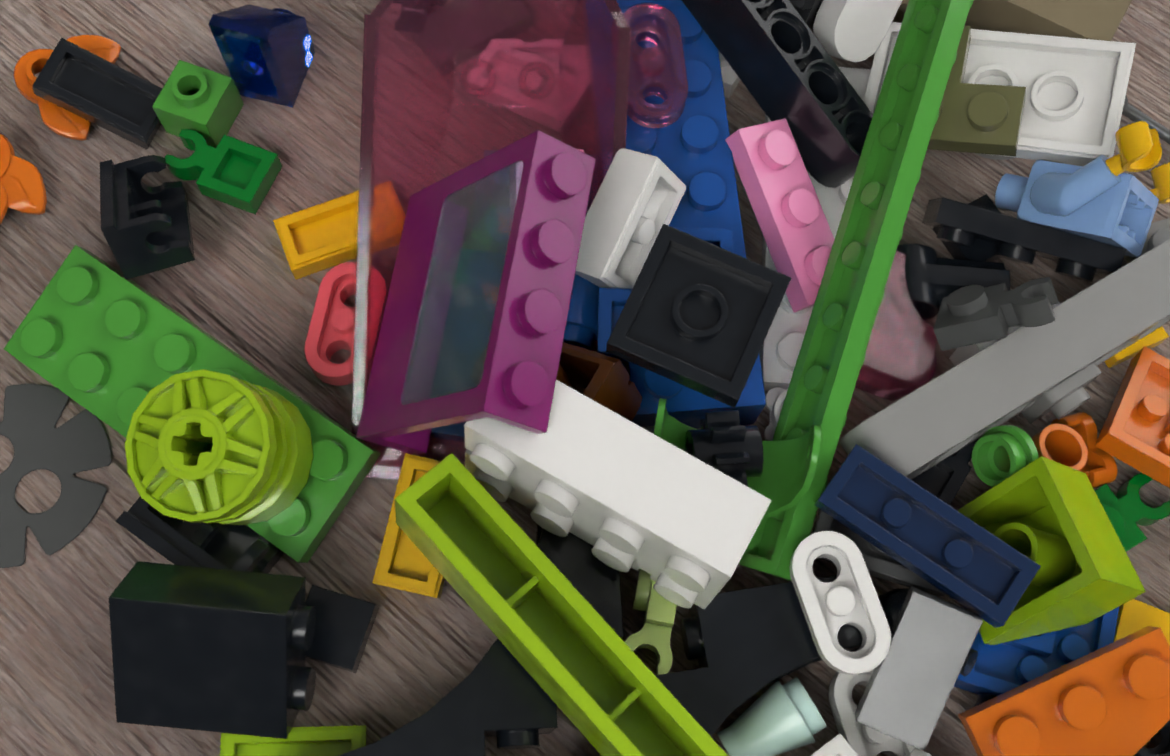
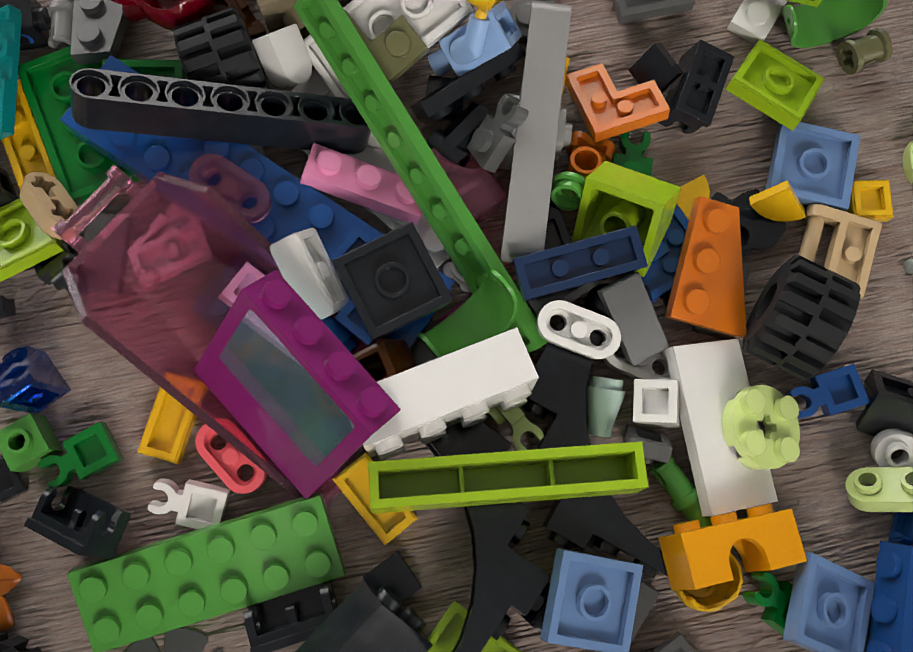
camera: 50 degrees left, 10 degrees up
(256, 456) = (257, 552): lime wheel -> none
(260, 324) = (196, 505): none -> white plate
(727, 445) = (464, 323): black gear -> none

